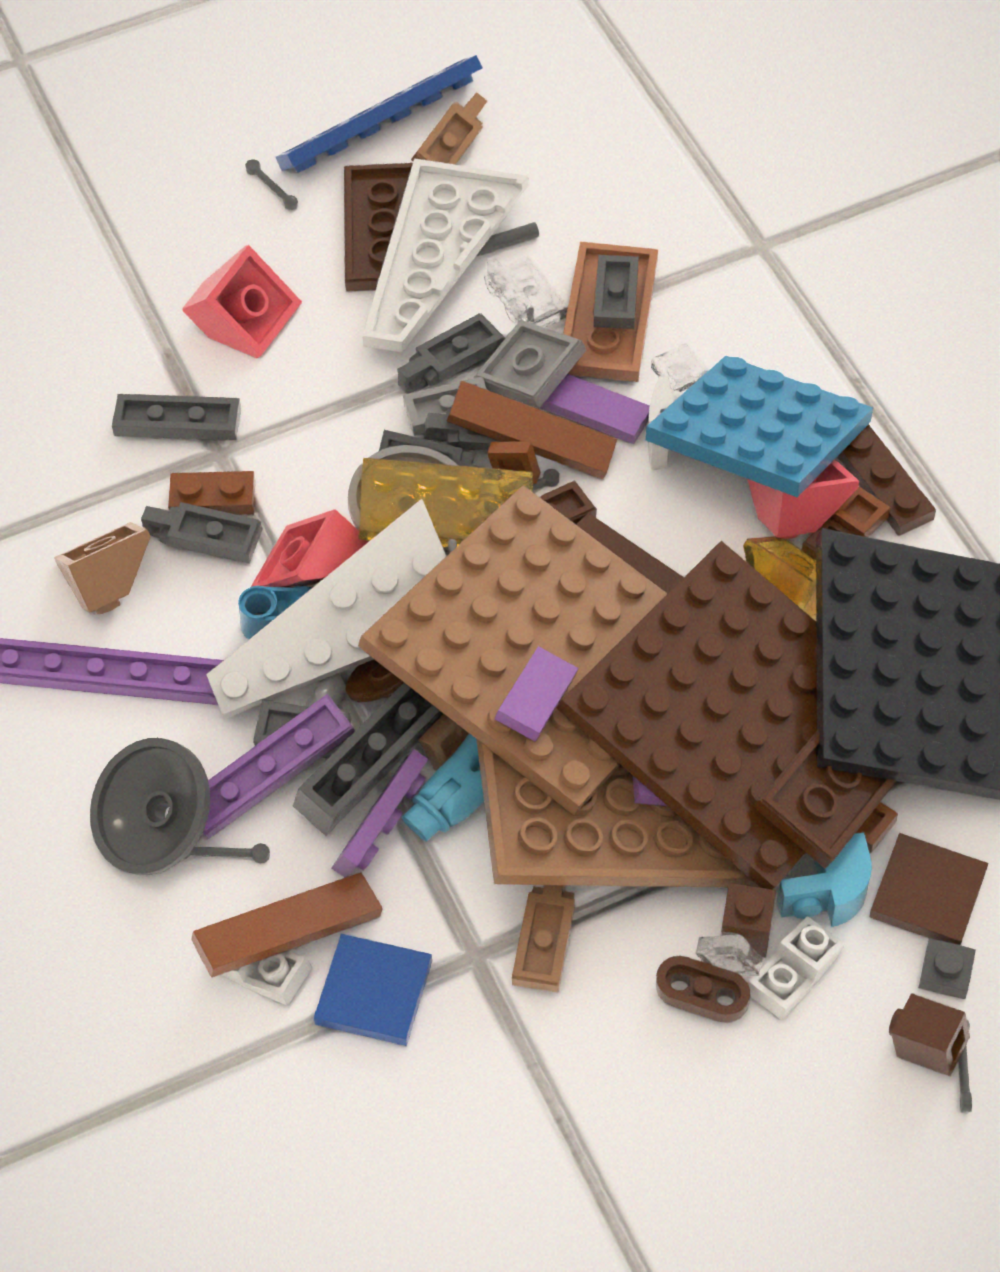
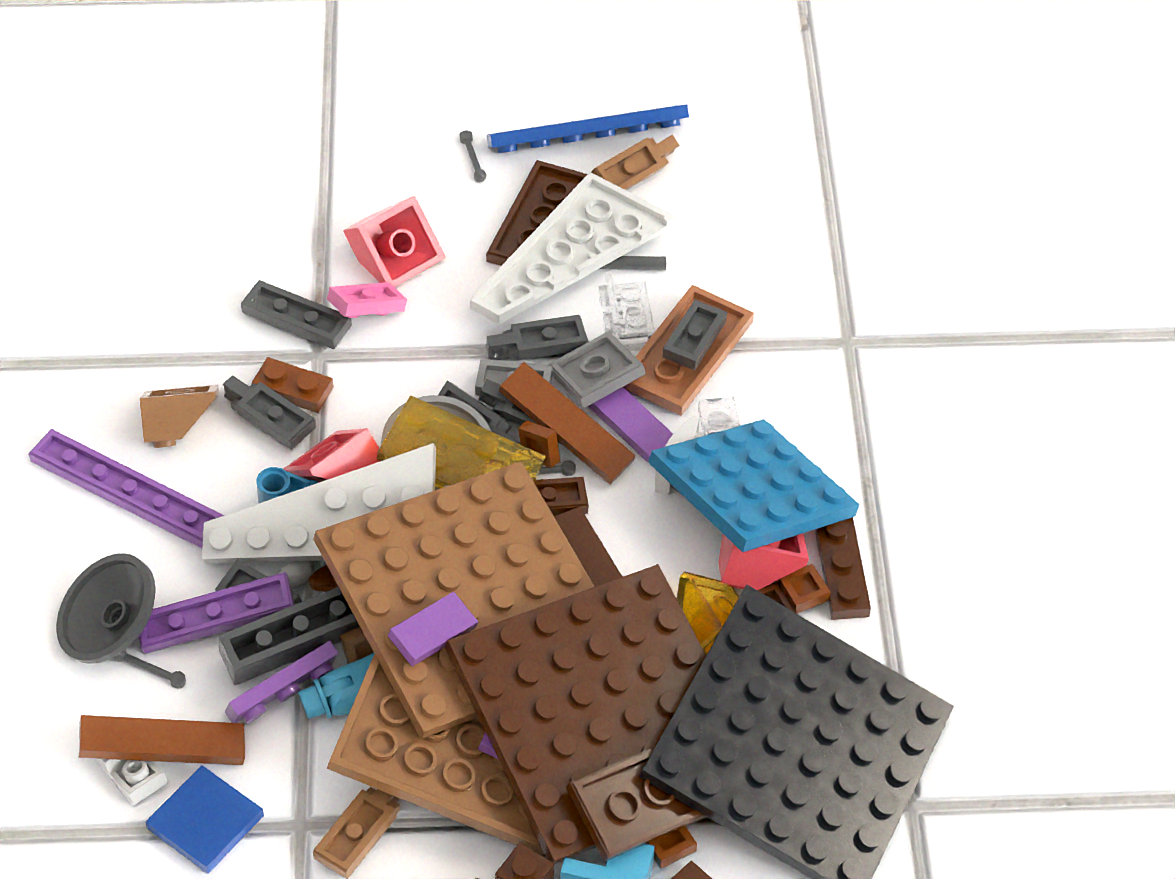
camera: 20 degrees right, 5 degrees down
(247, 374) = (366, 299): none -> bright pink plate

